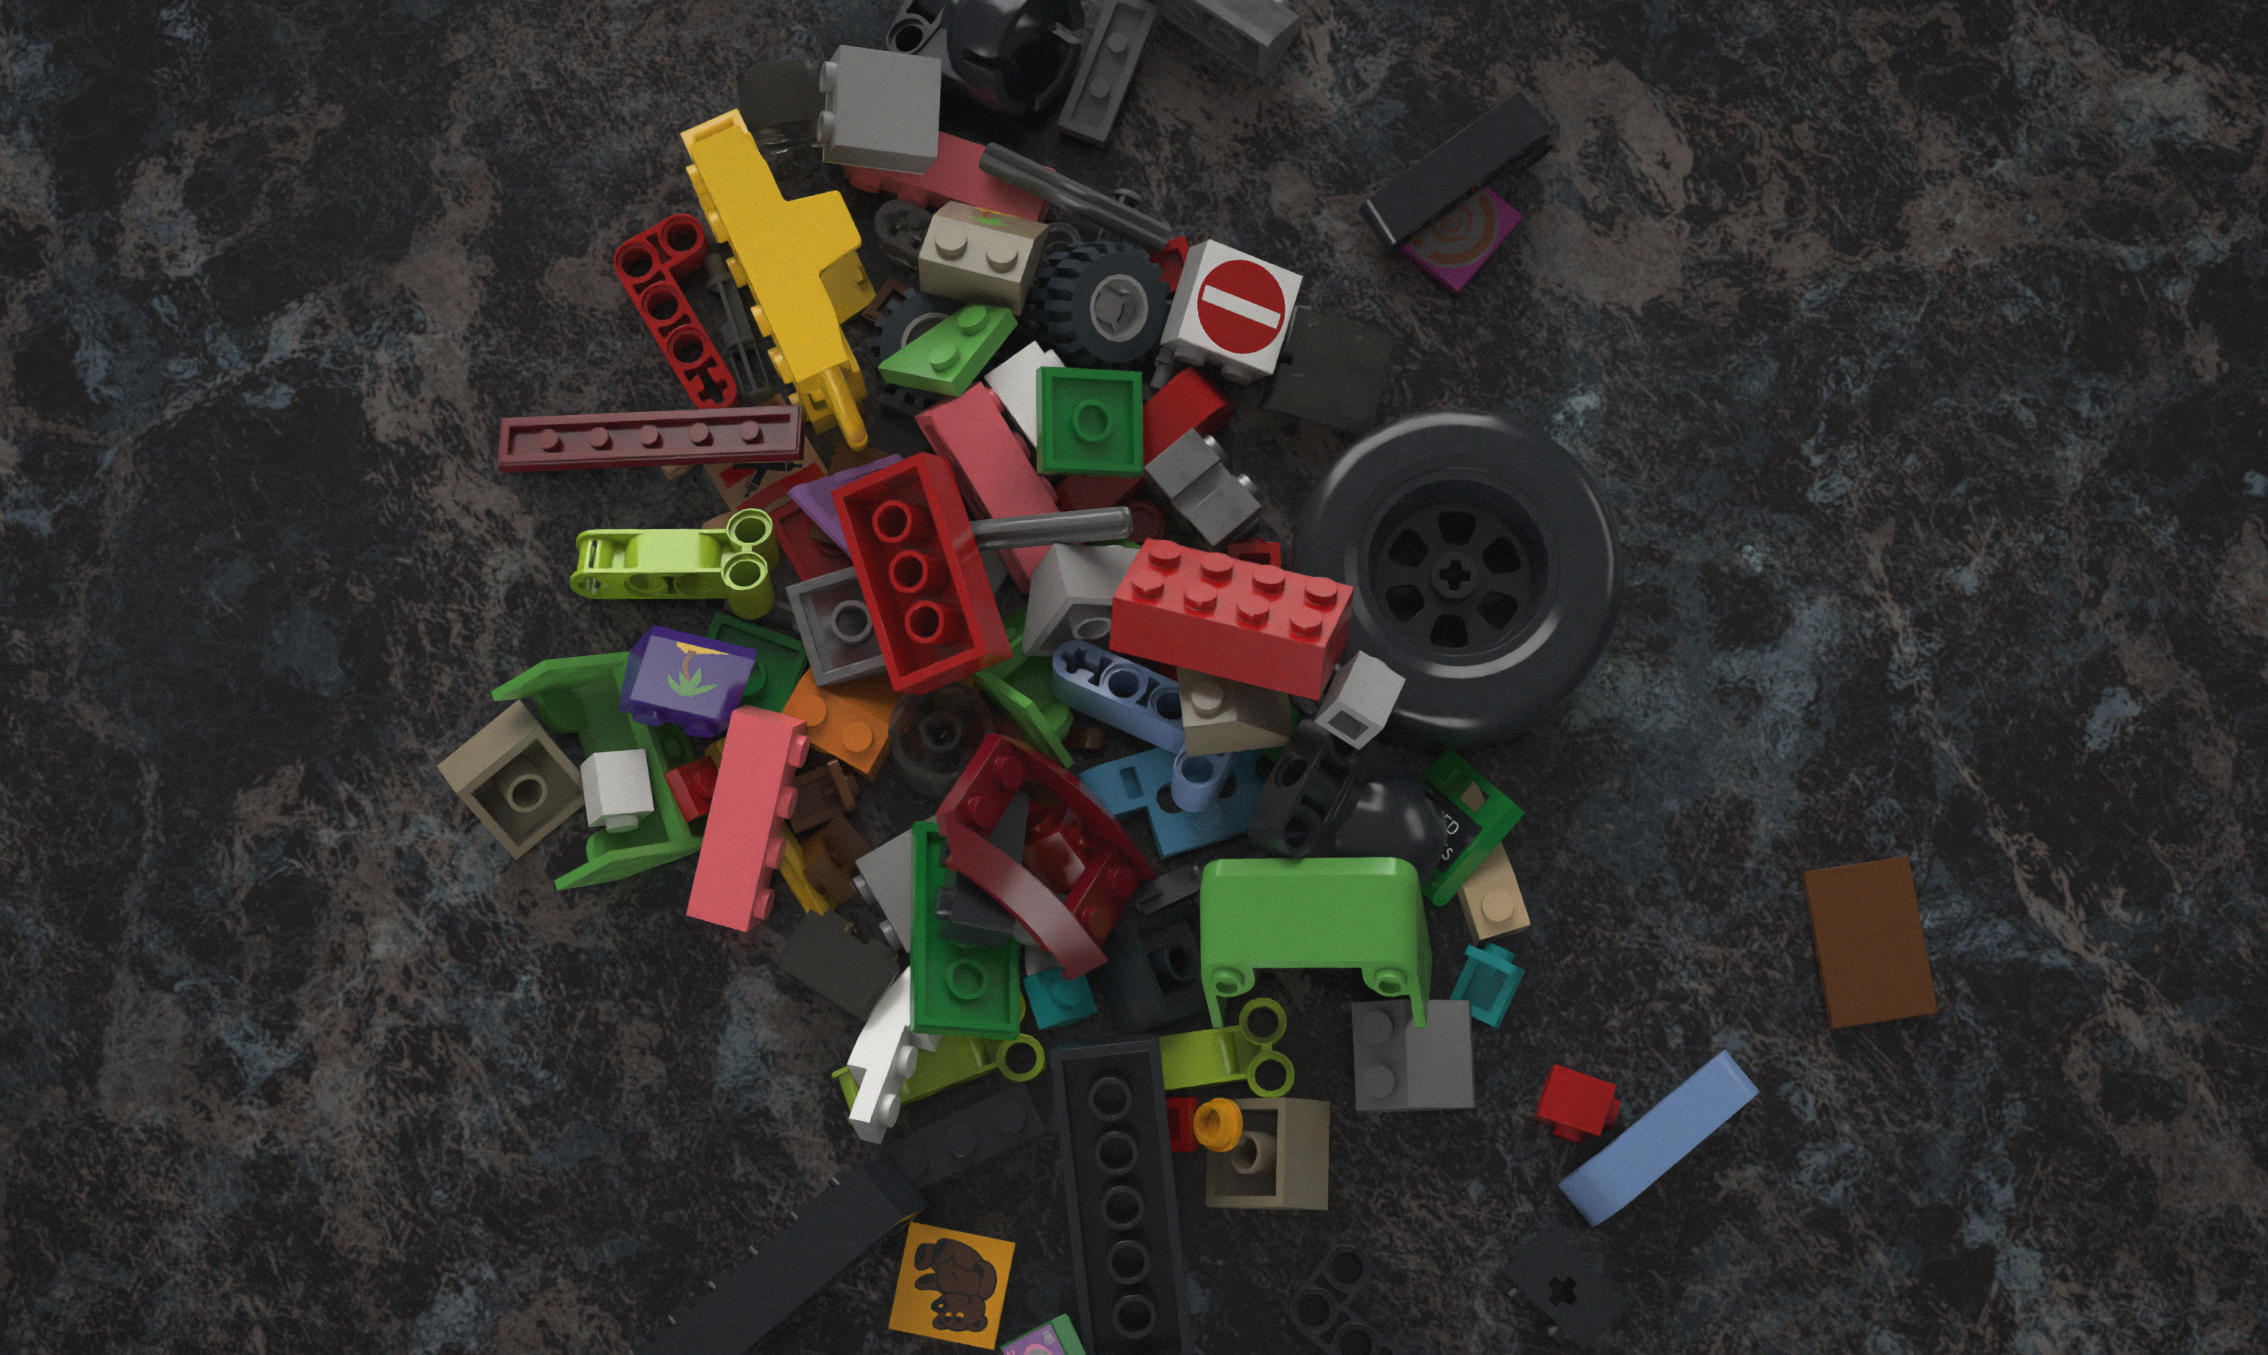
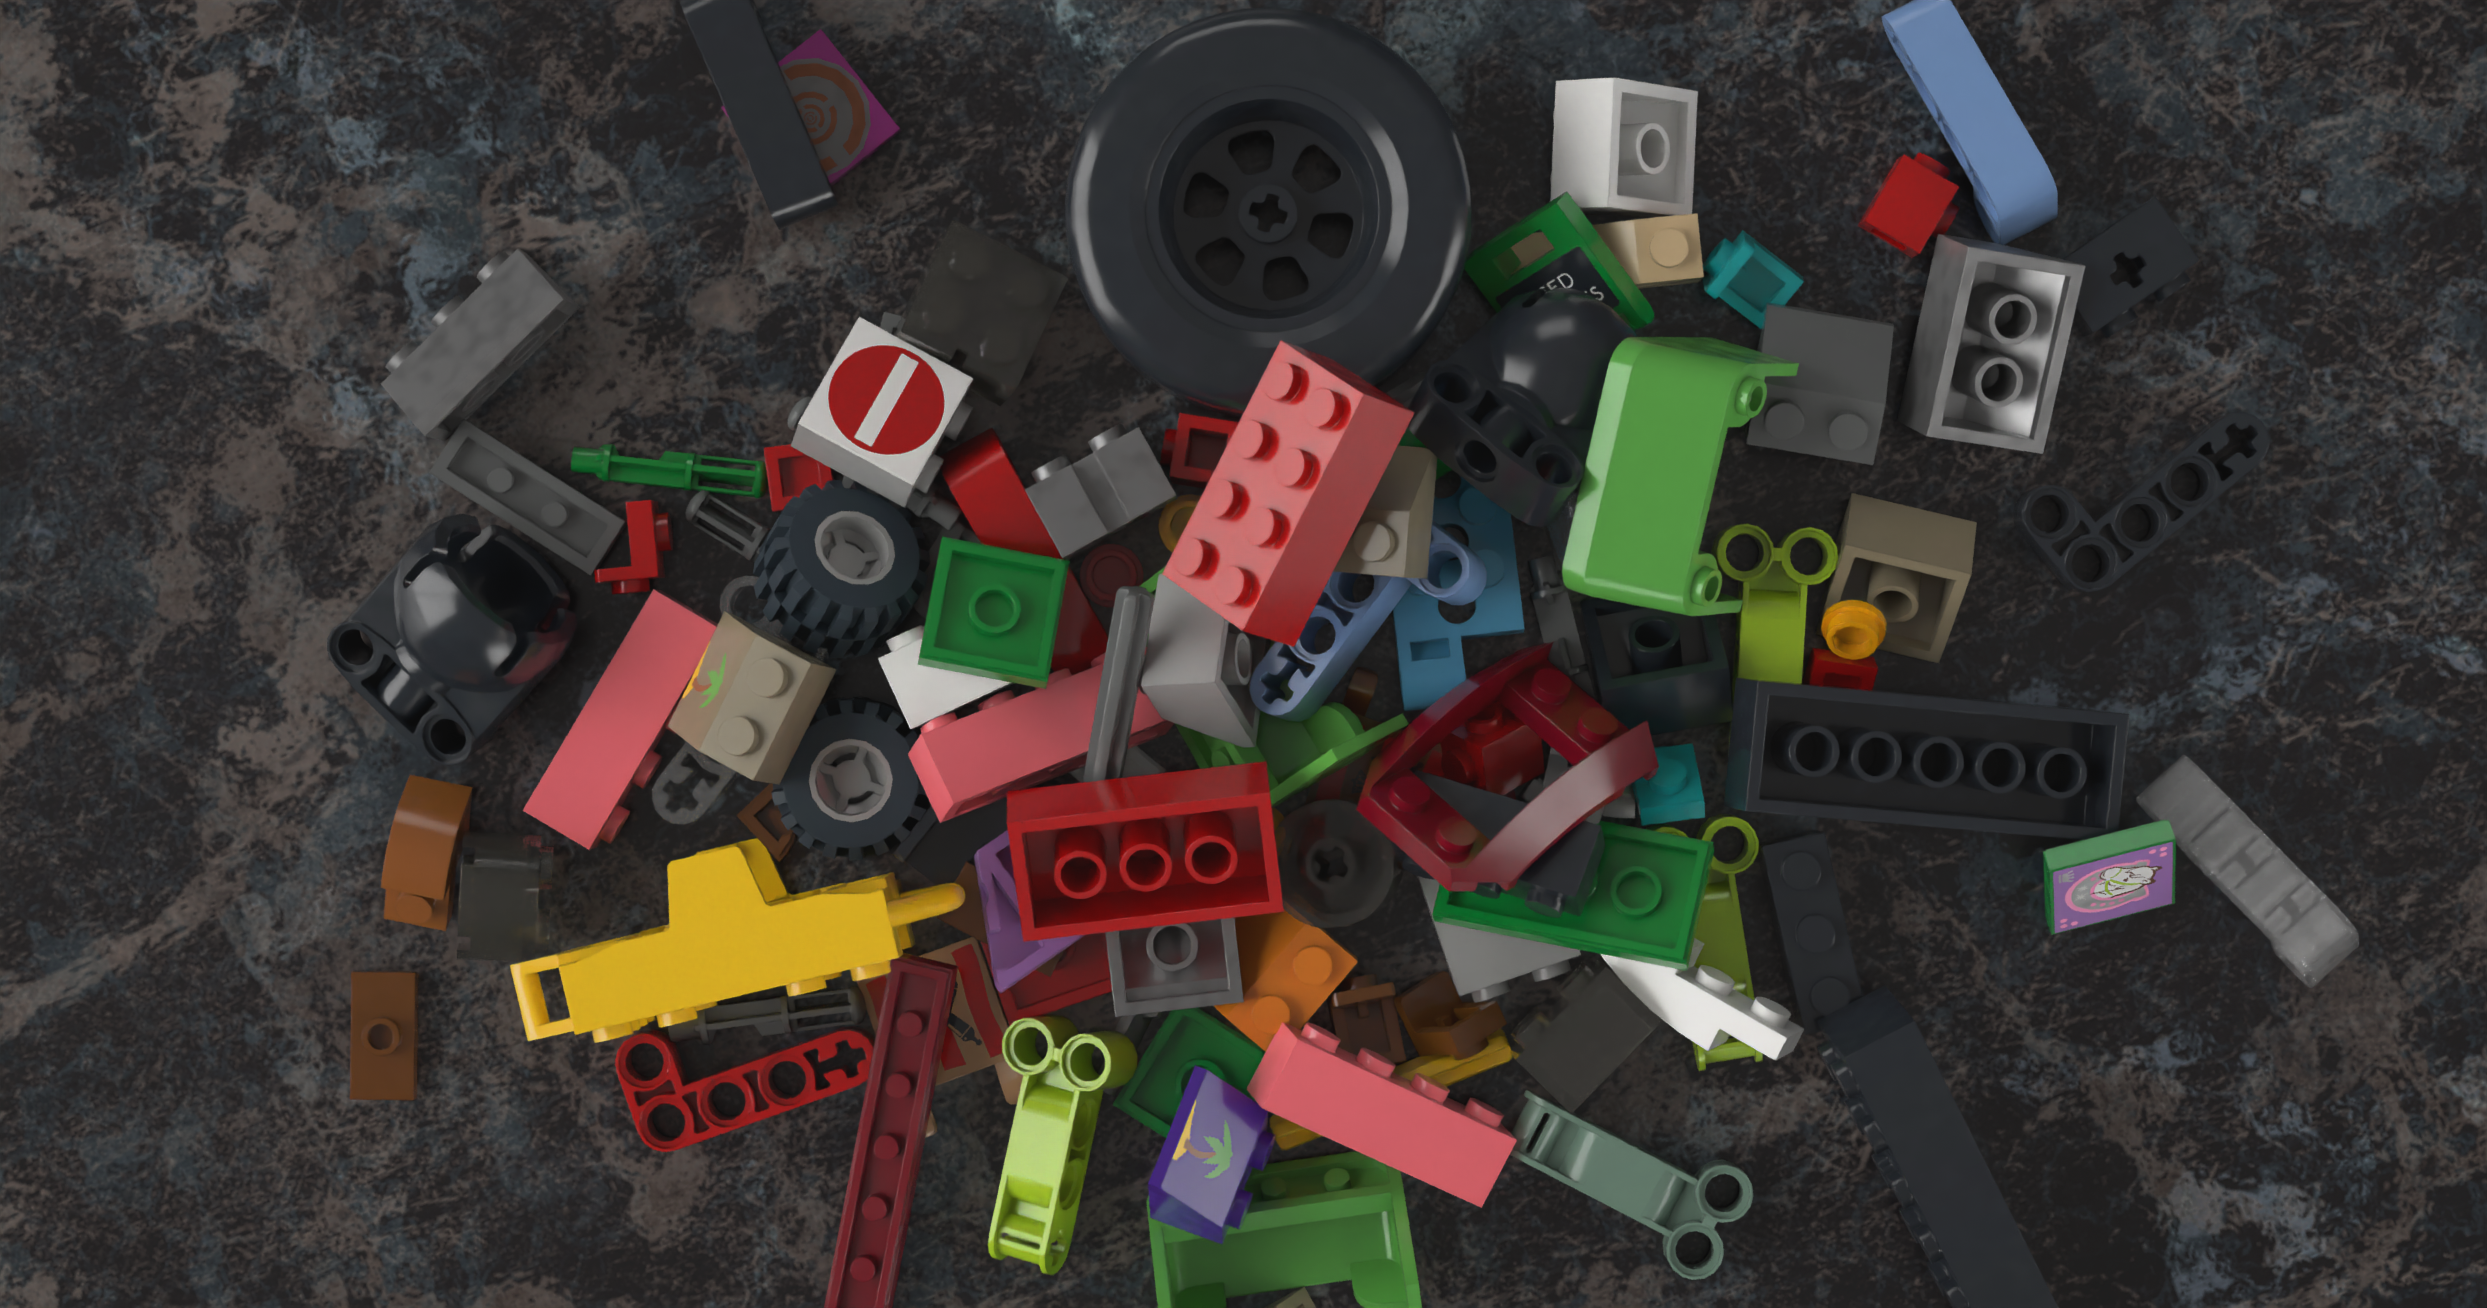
camera: 80 degrees left, 10 degrees up
(617, 789) = (1313, 1262): white brick -> none
(667, 44) = (384, 1035): none -> reddish brown plate
(693, 787) = (1328, 1168): red plate -> none
(731, 1035) = (1629, 1179): none -> sand green piece
(812, 34) = (425, 852): none -> dark orange brick
(880, 110) = (545, 789): light grey piece -> none
(952, 351) = (870, 761): bright green wing -> none
(952, 1285) = (1972, 975): tile -> none
(1075, 197) = (696, 572): dark grey axle -> none
(1092, 162) = (648, 537): none -> red bracket
(1151, 172) = (670, 471): none -> green piece
(1360, 700) = (1414, 361): light grey brick -> none
(1476, 1189) = (1990, 344): none -> flat silver slope
(1571, 861) = (1624, 147): none -> white slope

